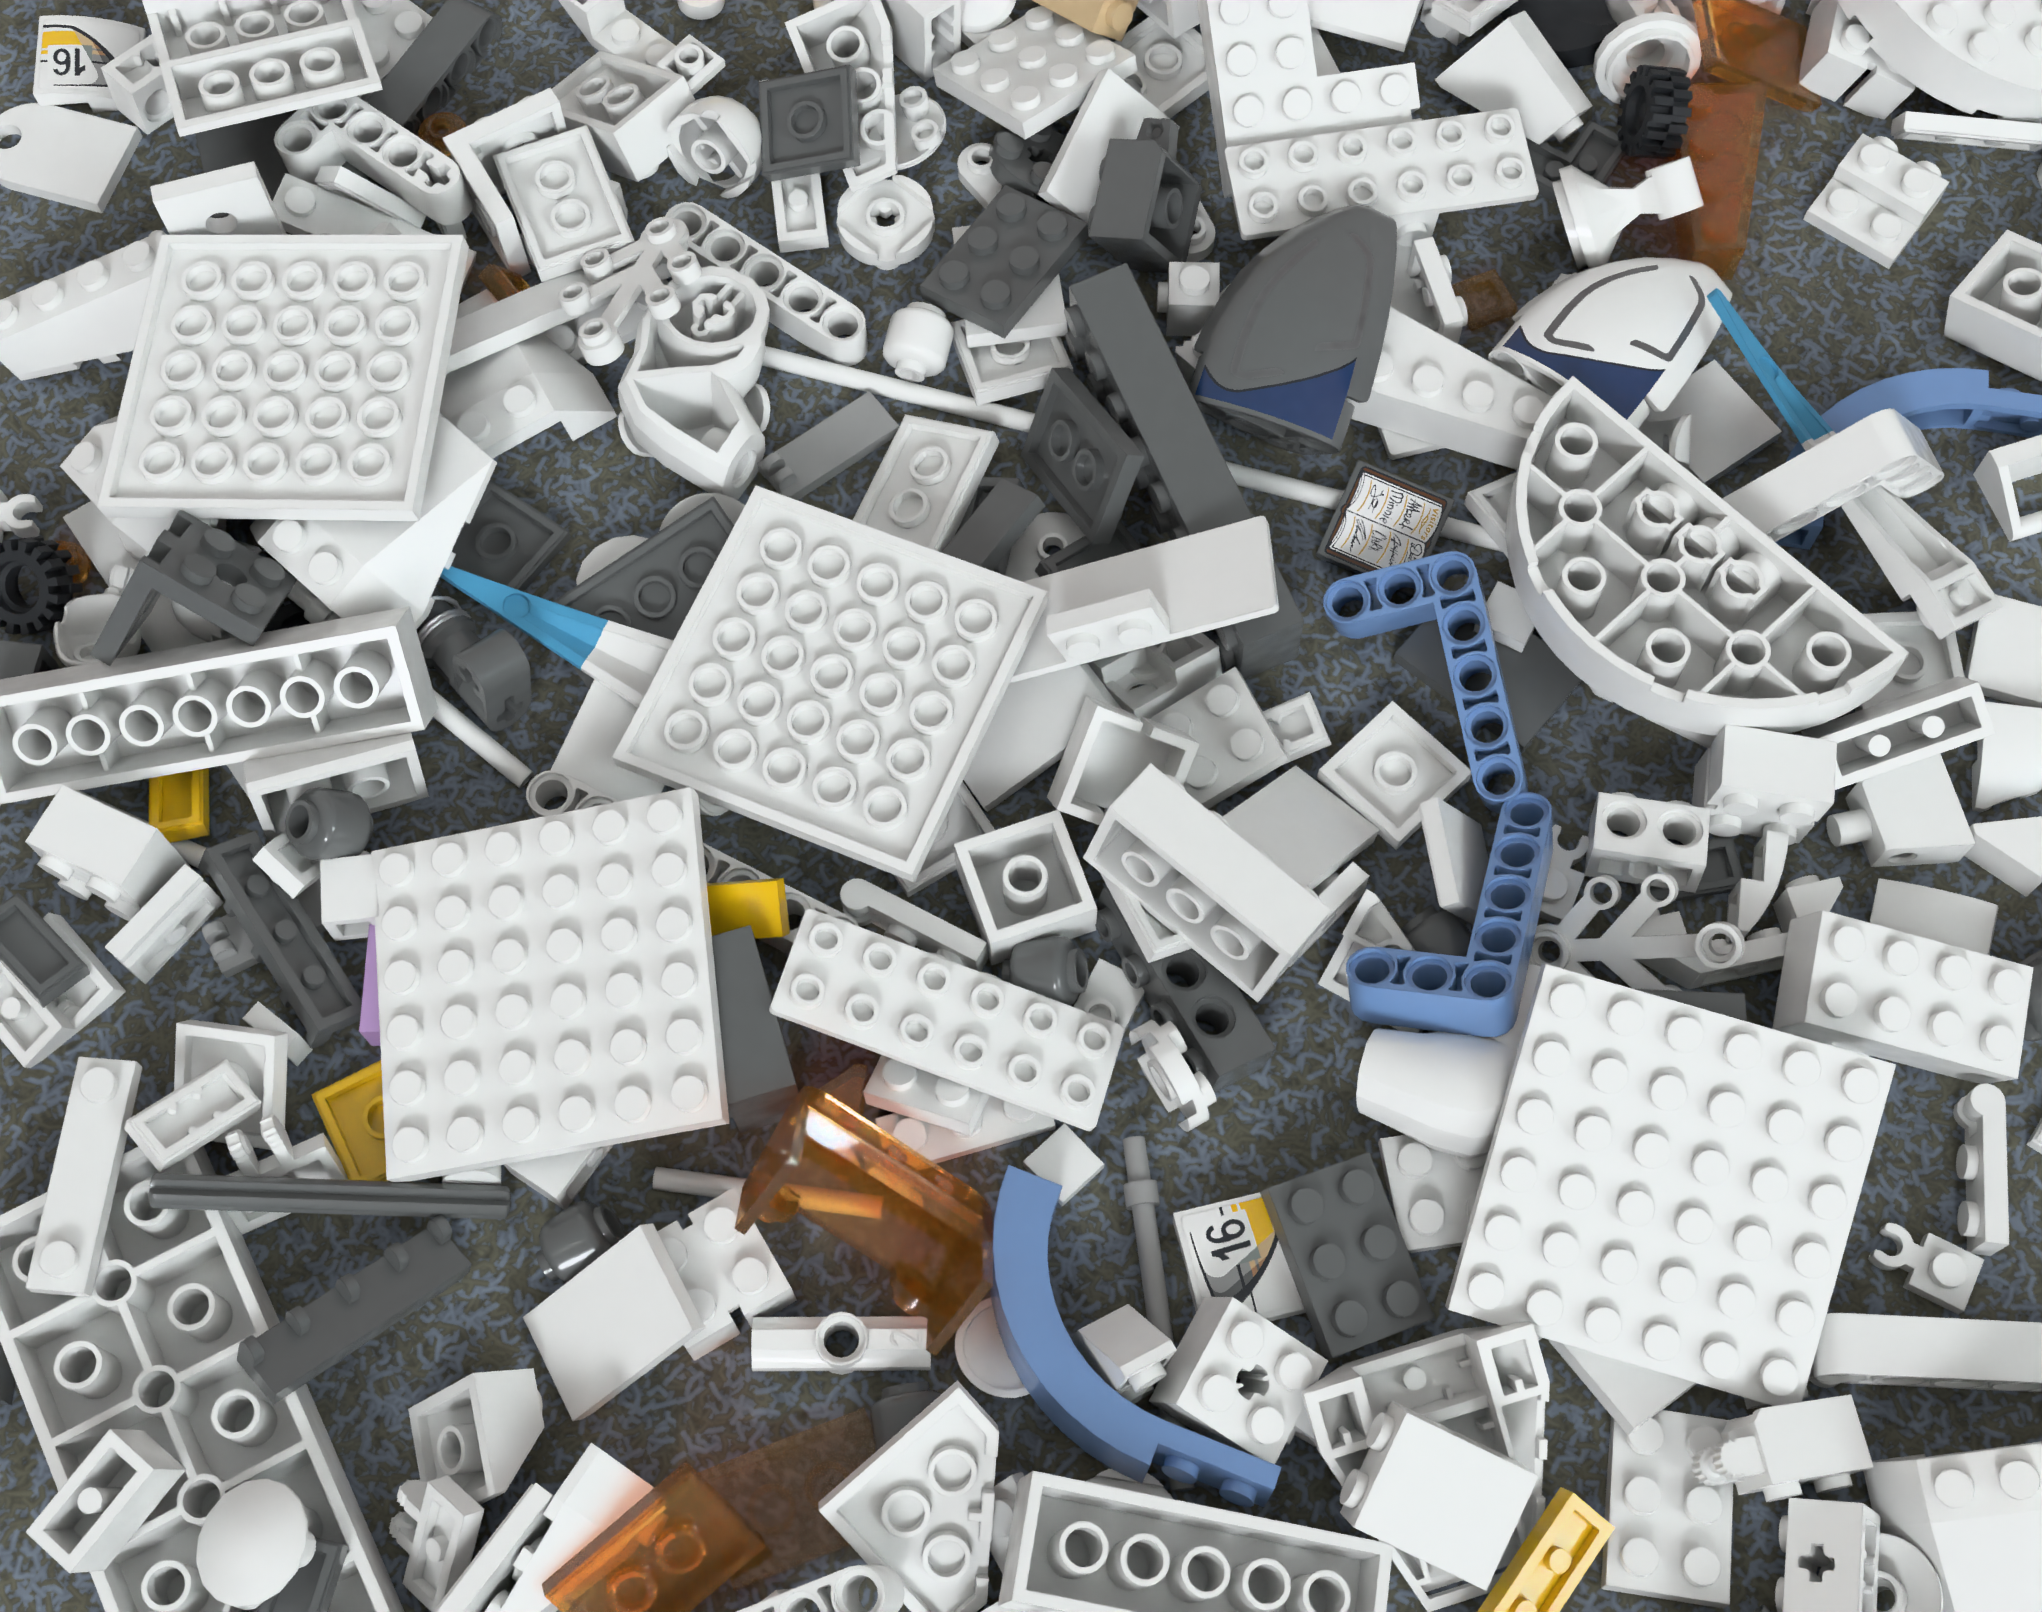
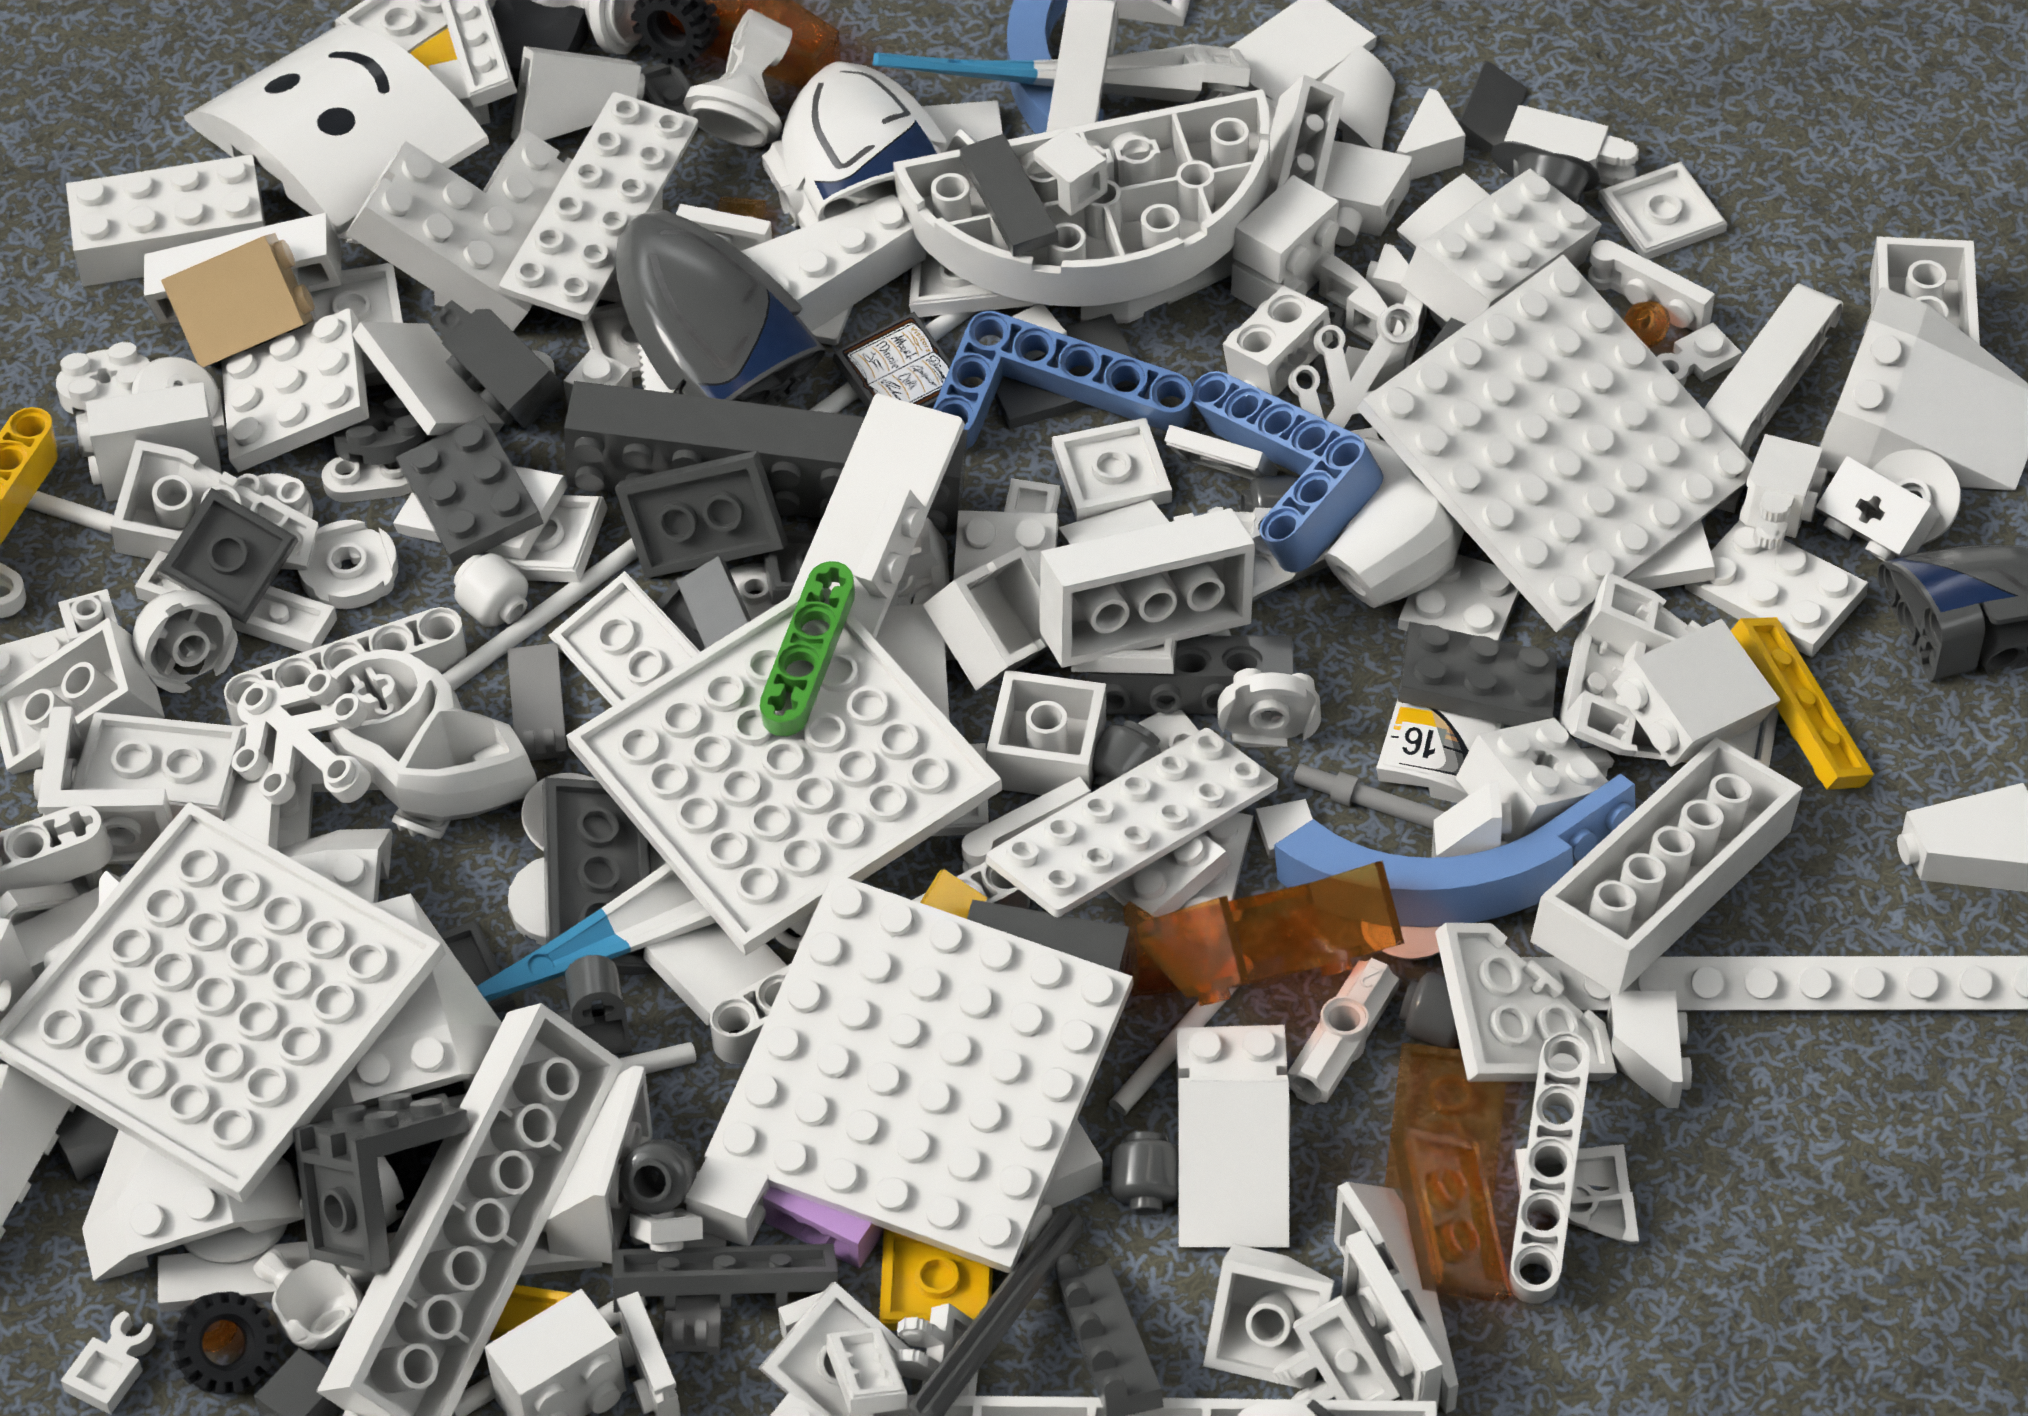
camera: 60 degrees left, 15 degrees down
(951, 616) = (804, 647): none -> bright green beam
(1594, 496) = (1008, 195): none -> dark grey tile
(1655, 533) = (1078, 170): none -> white panel
(1932, 1191) = (1648, 321): none -> clear orange plate

